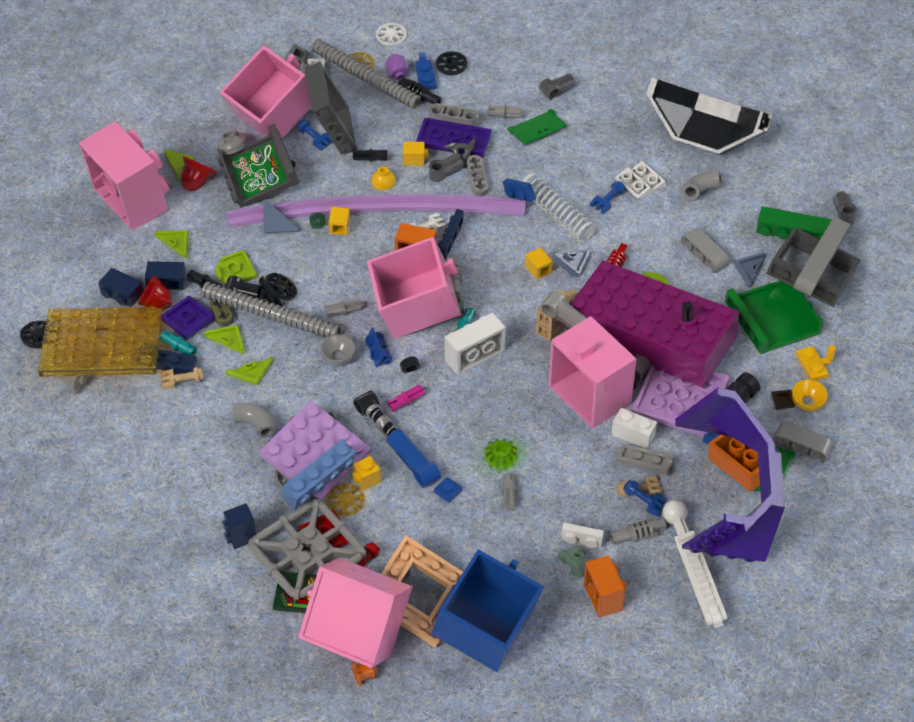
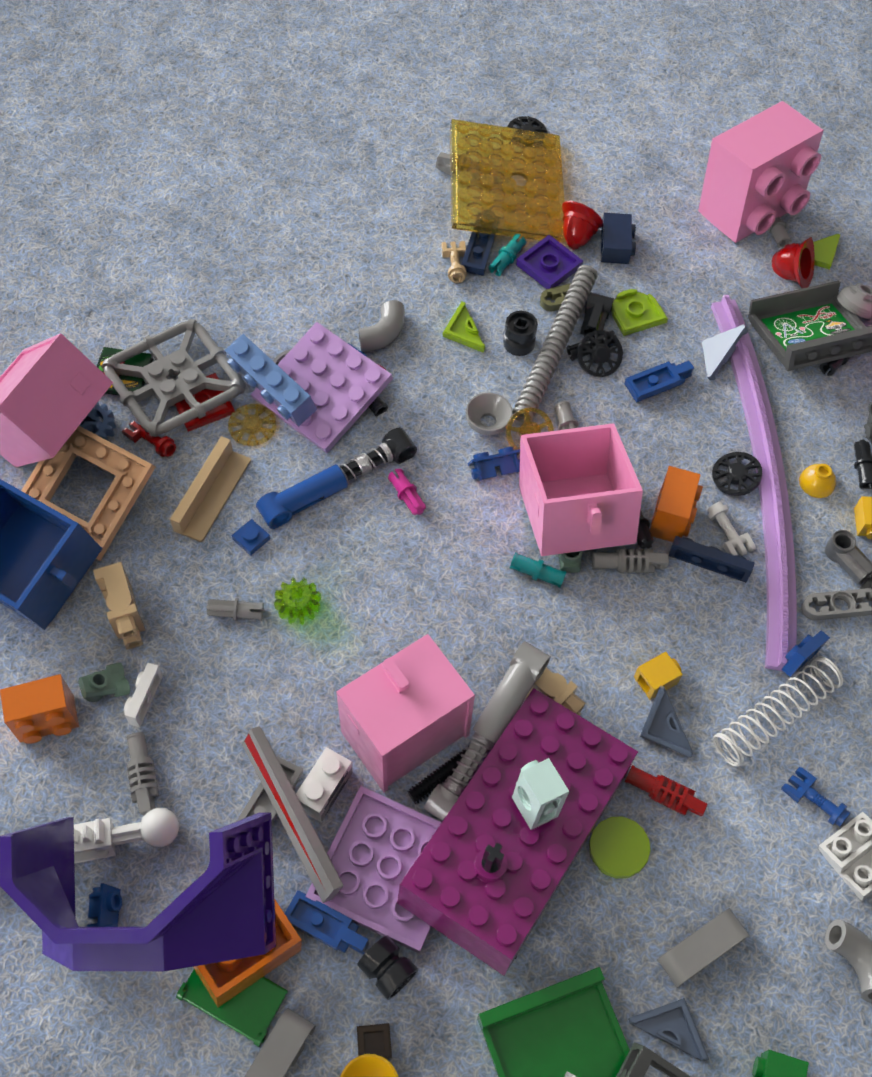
camera: 90 degrees right, 10 degrees up
(120, 287) = (597, 192): dark blue brick -> none
(175, 240) = (680, 252): lime tile -> none
(200, 279) = (612, 277): black axle -> none
(227, 336) = (520, 300): lime tile -> none
(238, 526) = (210, 306): dark blue brick -> none
(263, 331) = (520, 333): none -> black wheel
(302, 257) = (658, 379): none -> blue hinge
(317, 225) = (723, 404): clear green bush -> none
(339, 220) = (726, 421): yellow brick -> none
(352, 326) = (528, 426): none -> clear yellow wheel
(366, 473) = (281, 441): yellow brick -> none
(380, 219) = (737, 473): none -> black wheel
(409, 364) = (463, 498): black tile -> none
(409, 518) = (209, 491): none -> tan panel
(474, 343) = (488, 571): white brick -> none
(521, 546) = (121, 604): none -> tan hips
(645, 444) = (292, 815): none -> light grey tile
(648, 287) = (539, 793): none -> light aqua brick
(650, 485) = (219, 760): tan hinge -> none
(654, 503) = (204, 763): blue hinge -> none

